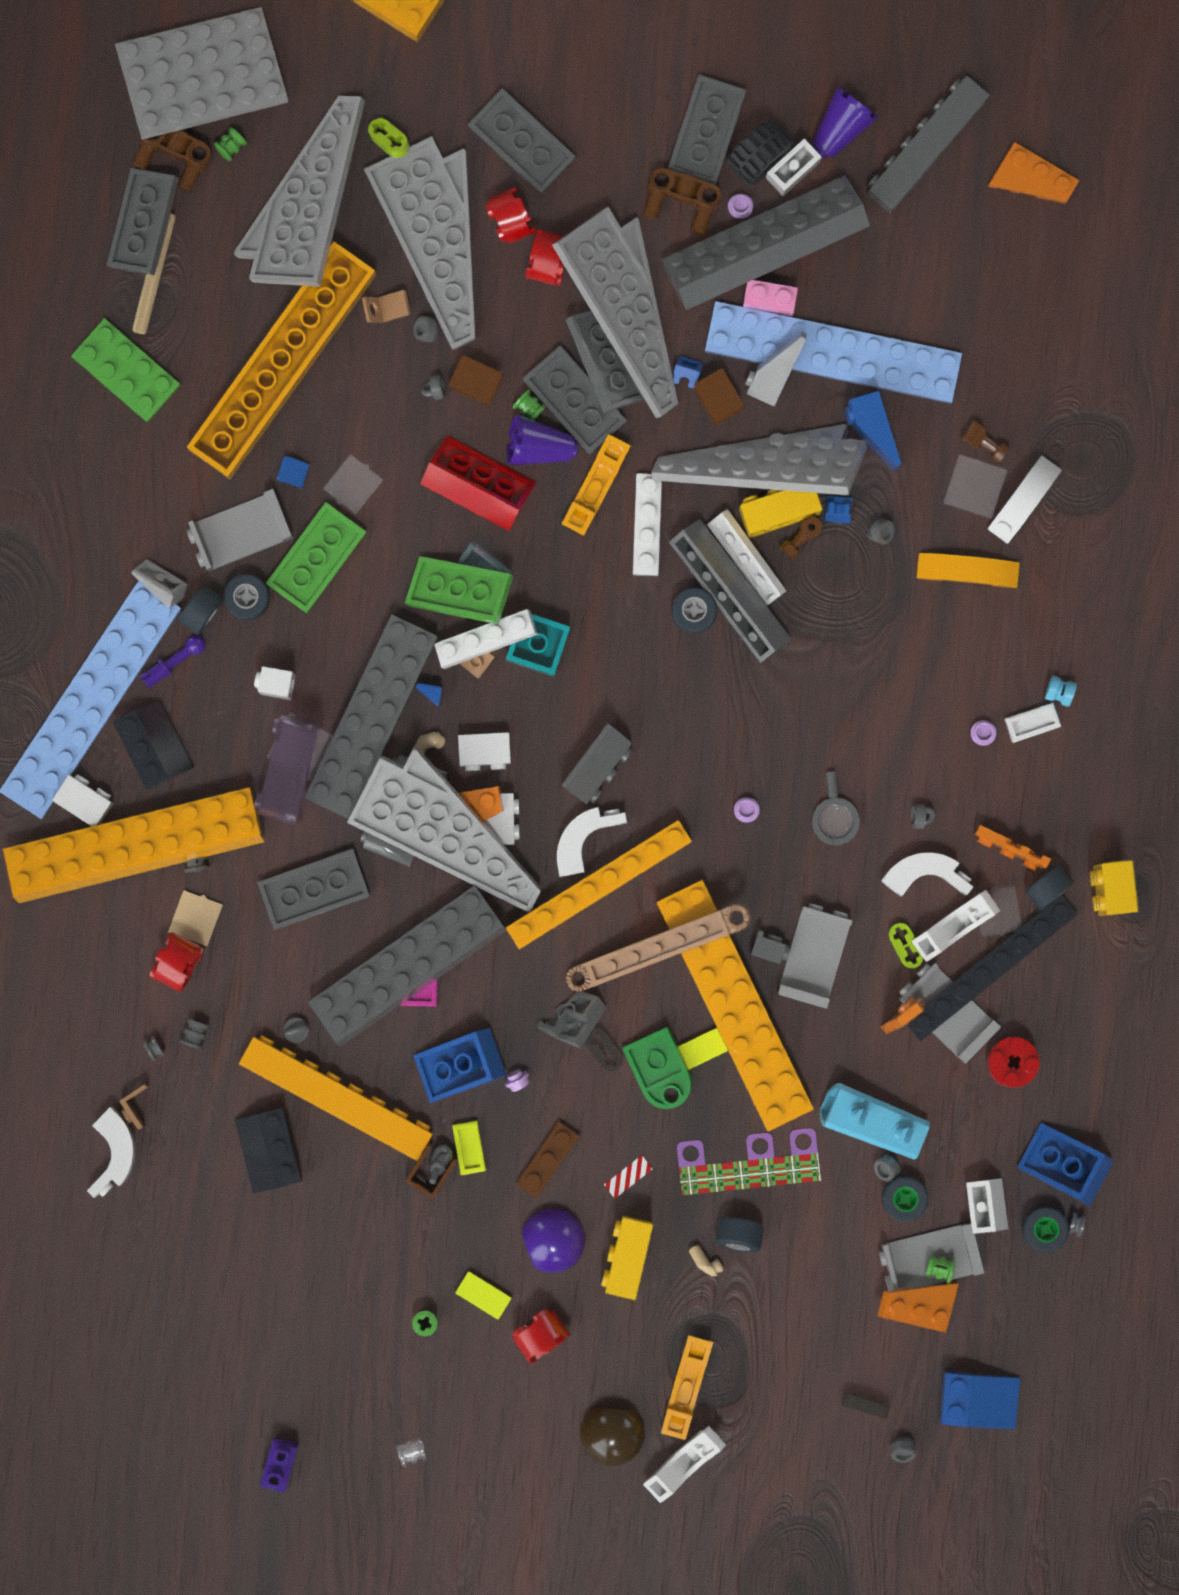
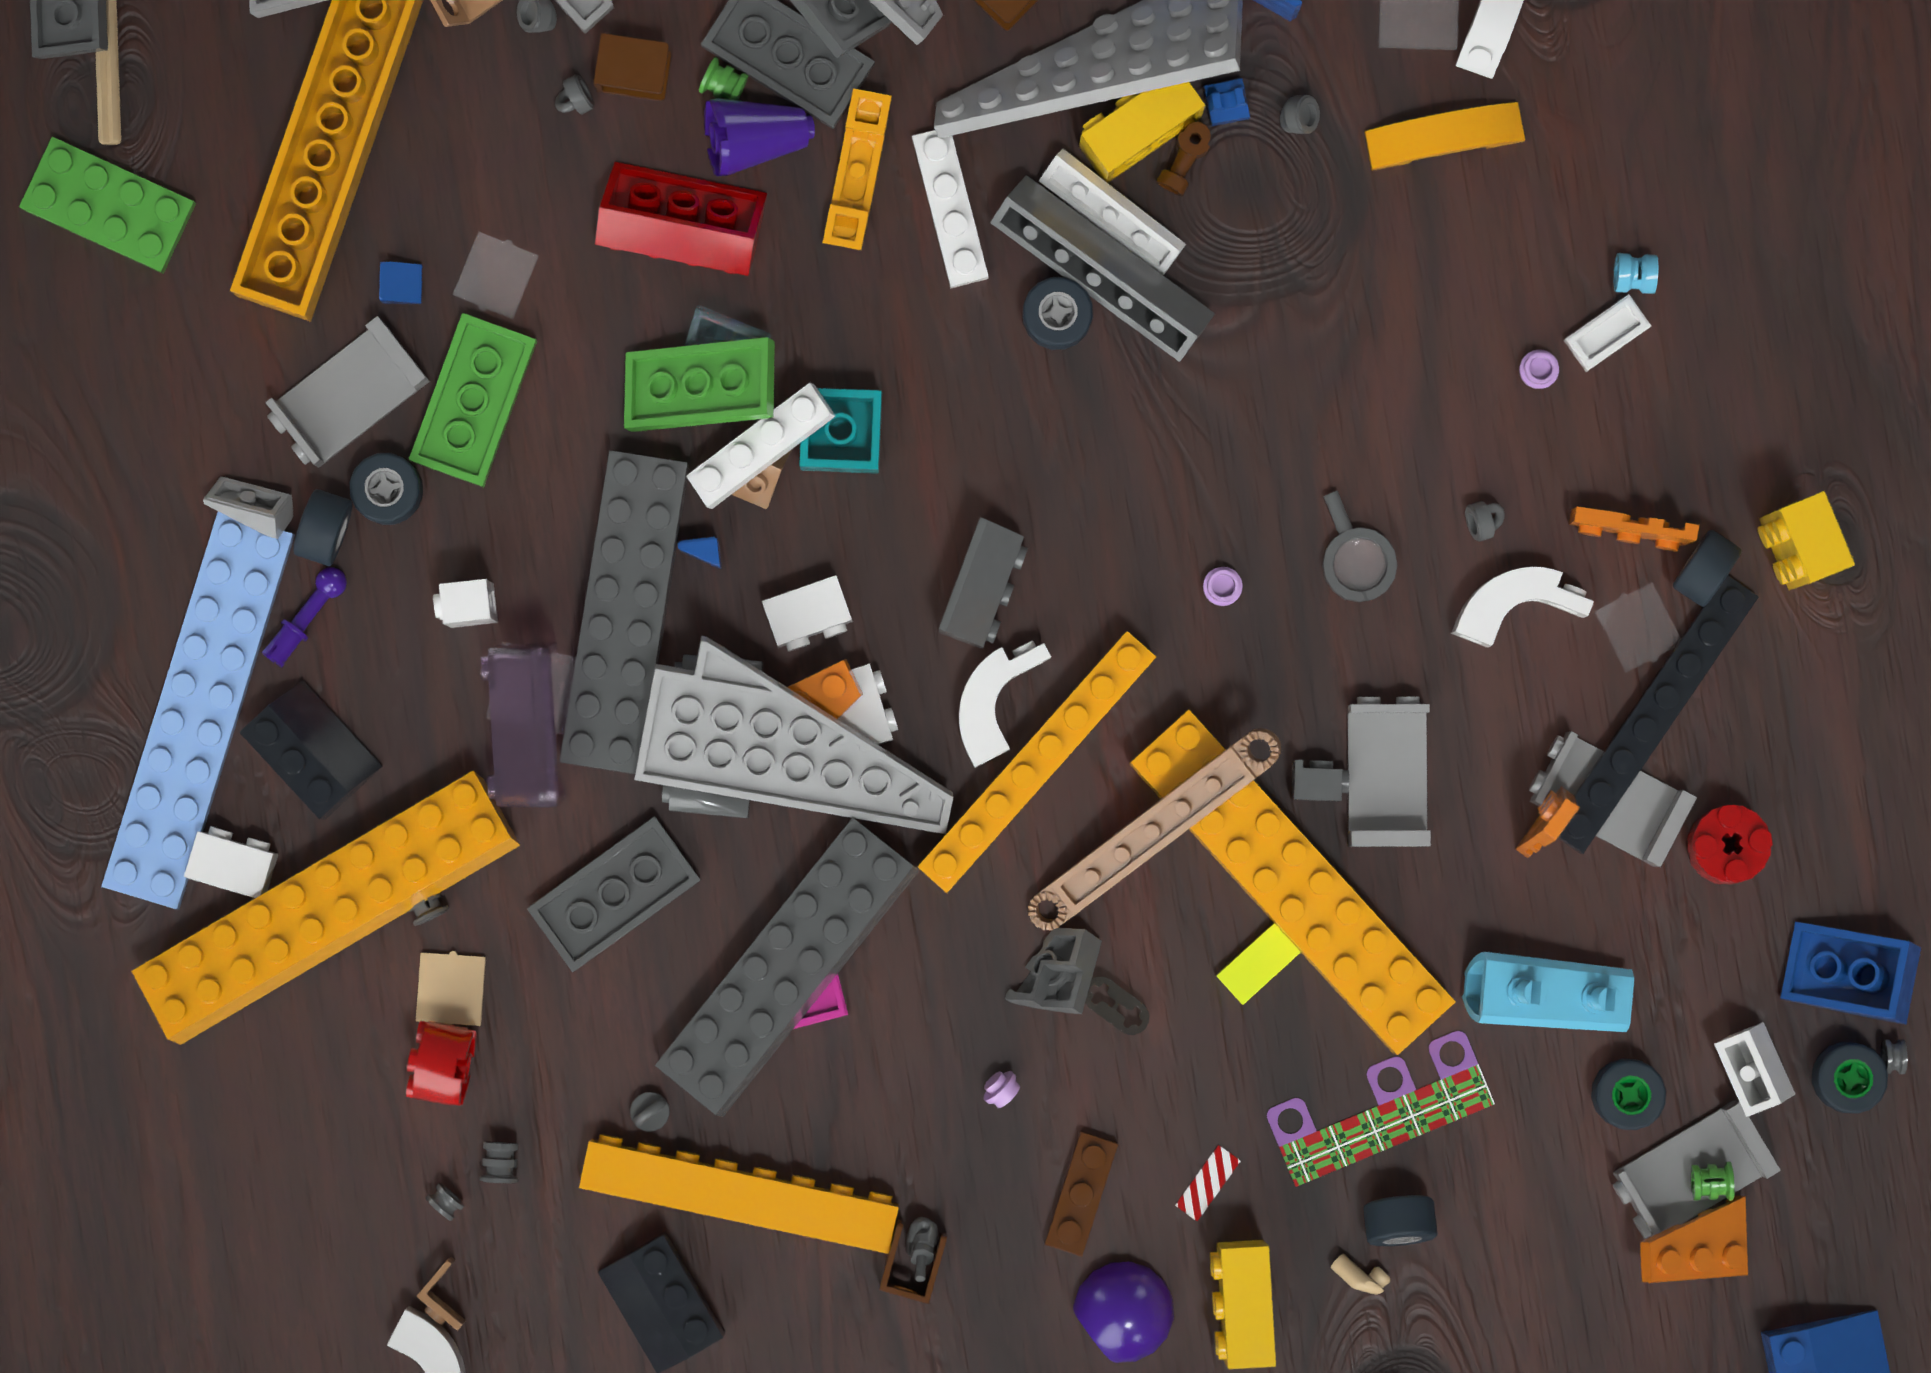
camera: 25 degrees left, 0 degrees up
(429, 740) = (721, 622): tan arm -> none
(459, 1065) = (909, 1091): blue slope -> none
(469, 1147) = (958, 1210): neon yellow tile -> none
(659, 1066) = (1206, 1006): green tile -> none
(887, 1168) = (1588, 1056): dark grey tile -> none
(900, 948) = (1525, 711): lime beam -> none
(955, 925) = (1584, 665): white arch -> none

